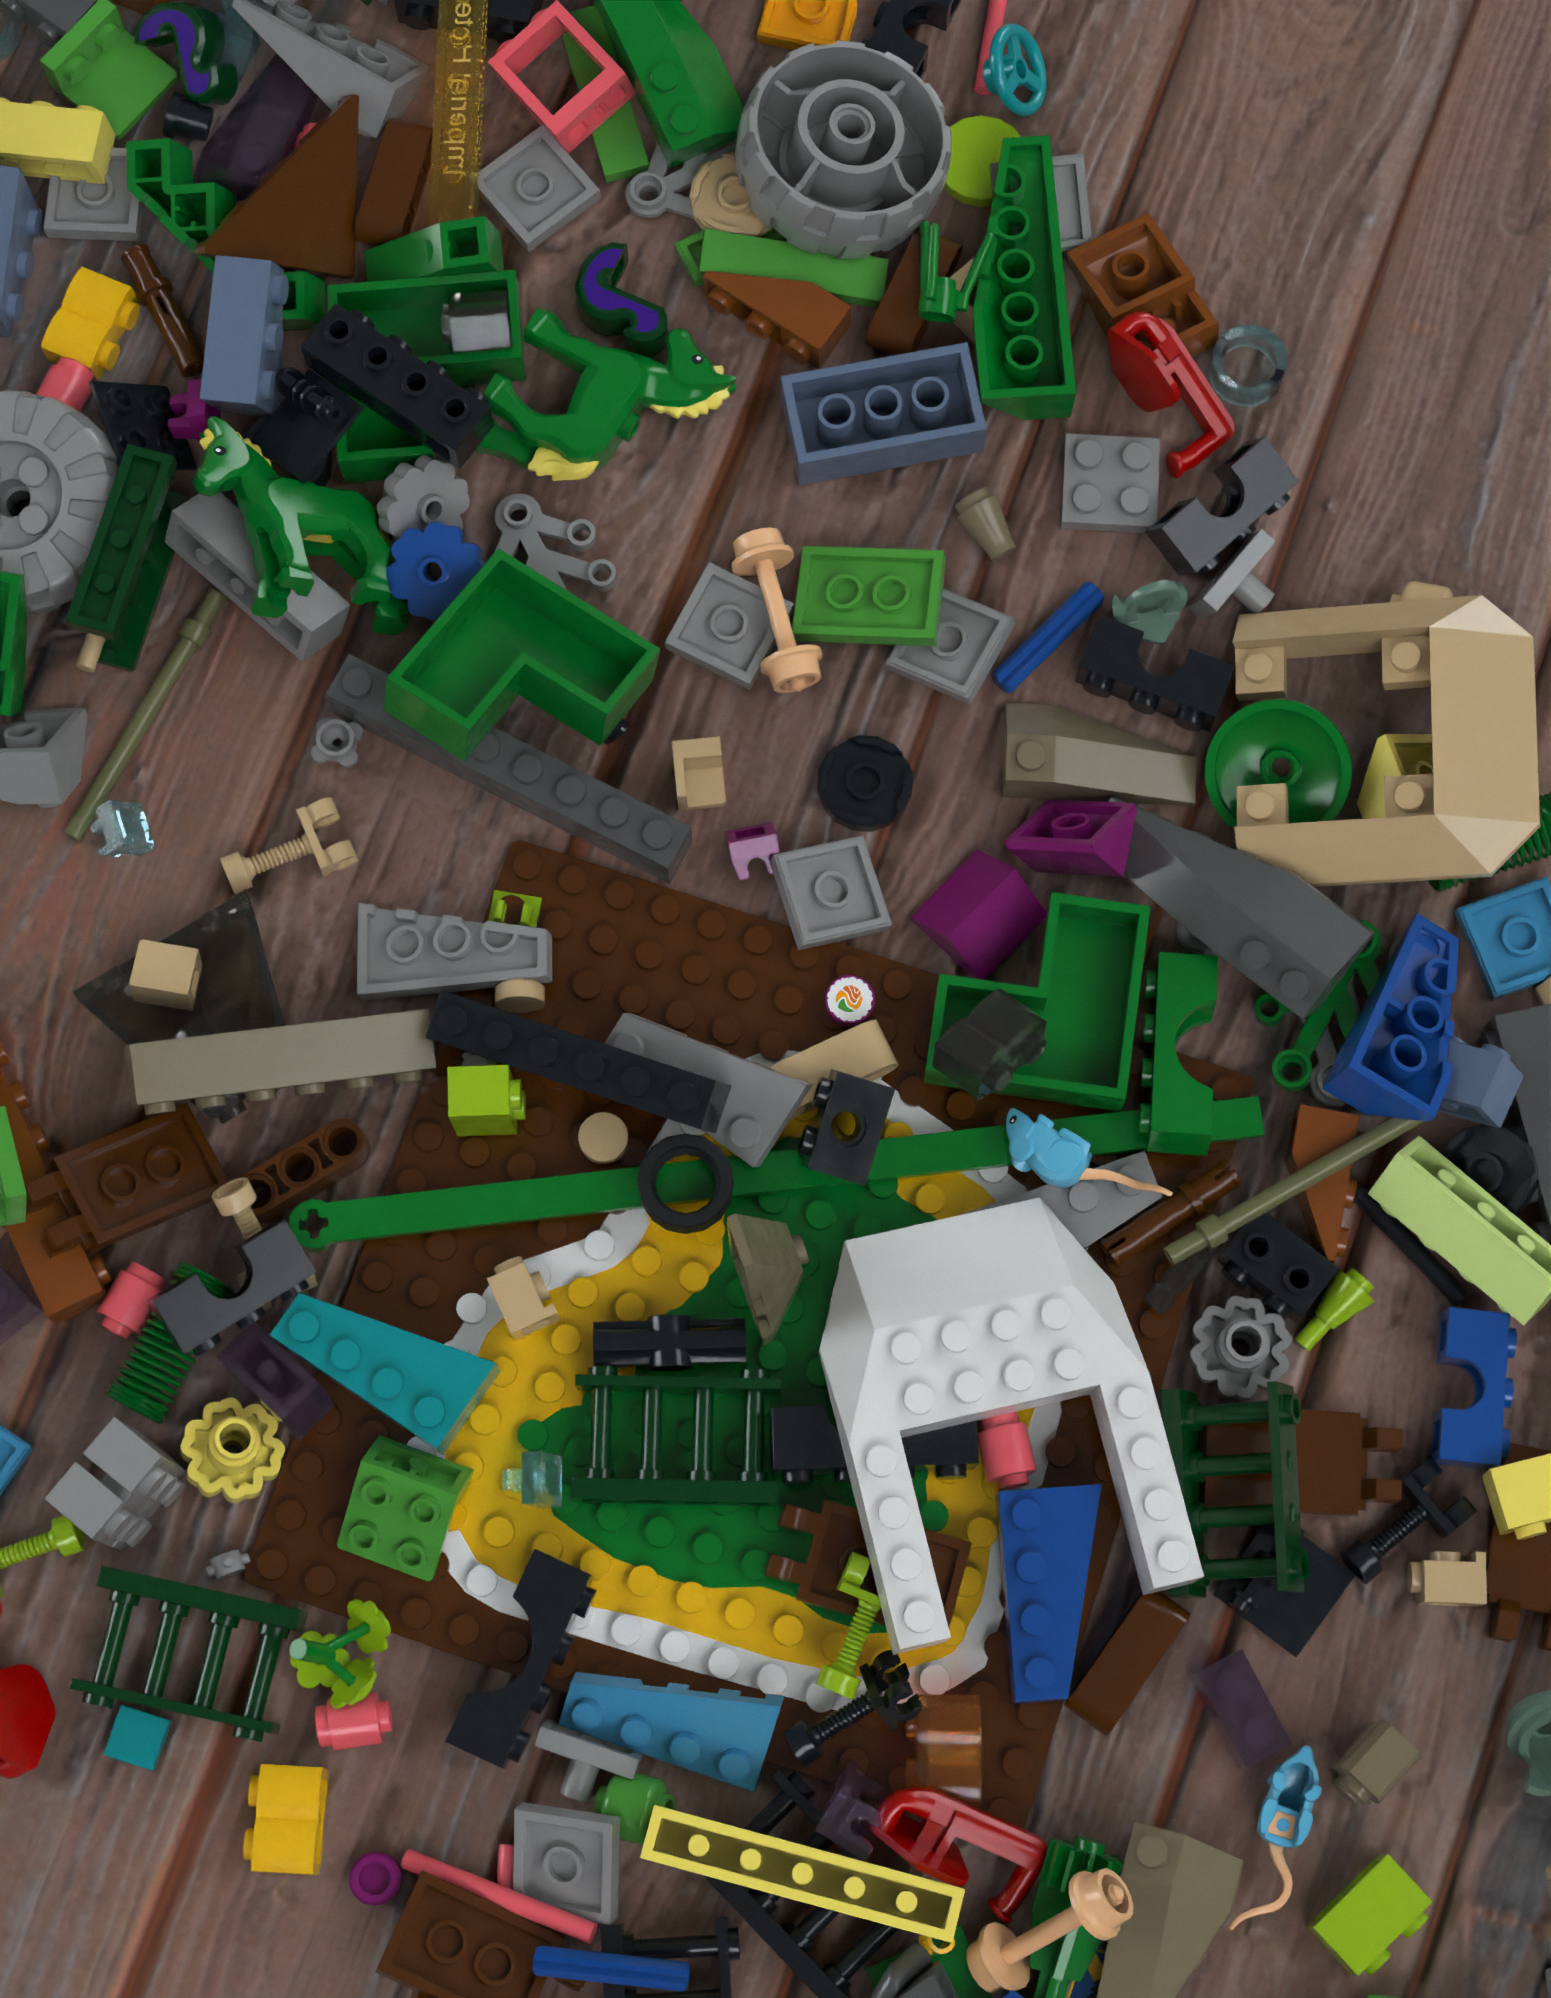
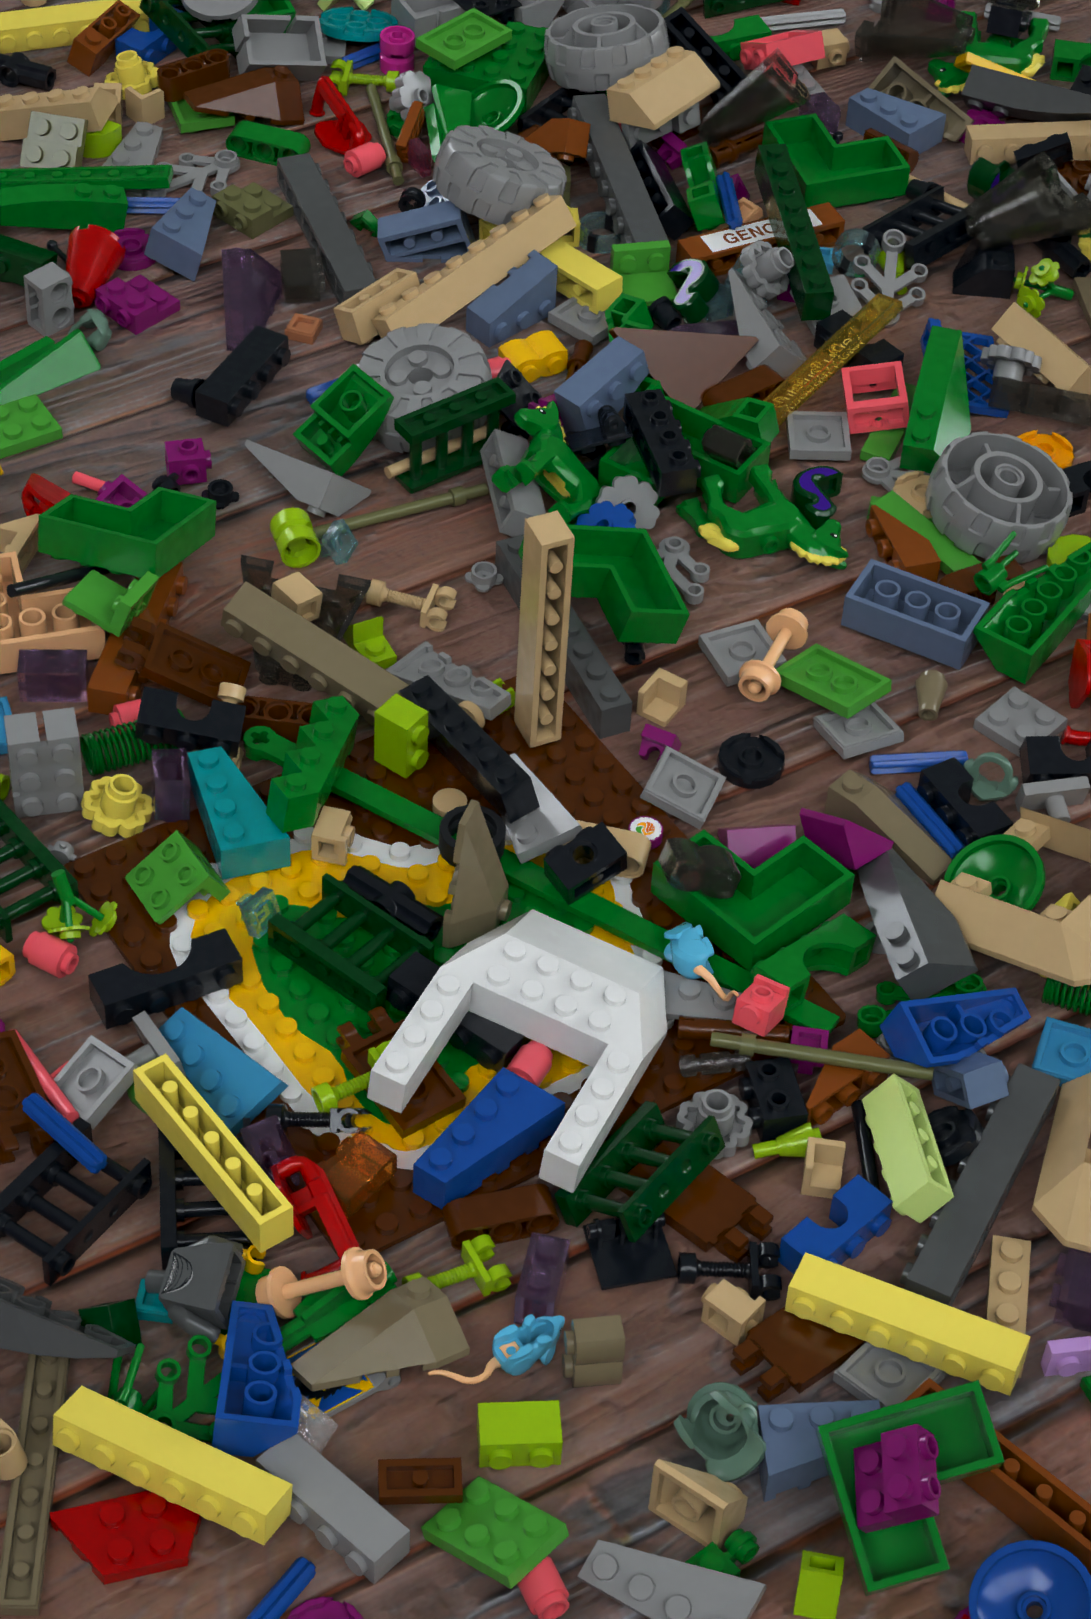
camera: 35 degrees right, 30 degrees down
(63, 864) = (295, 537): none -> lime wheel
(300, 958) = (370, 642): none -> lime slope
(424, 1209) = (314, 765): none -> green brick
(587, 878) = (543, 627): none -> tan brick
(1121, 1817) = (473, 1254): none -> lime bar
(1126, 717) = (929, 819): none -> blue axle
(1183, 1164) = (761, 1005): none -> coral brick
(1260, 1164) = (808, 1037): none -> magenta tile
(1395, 1318) = (822, 1167): none -> tan panel

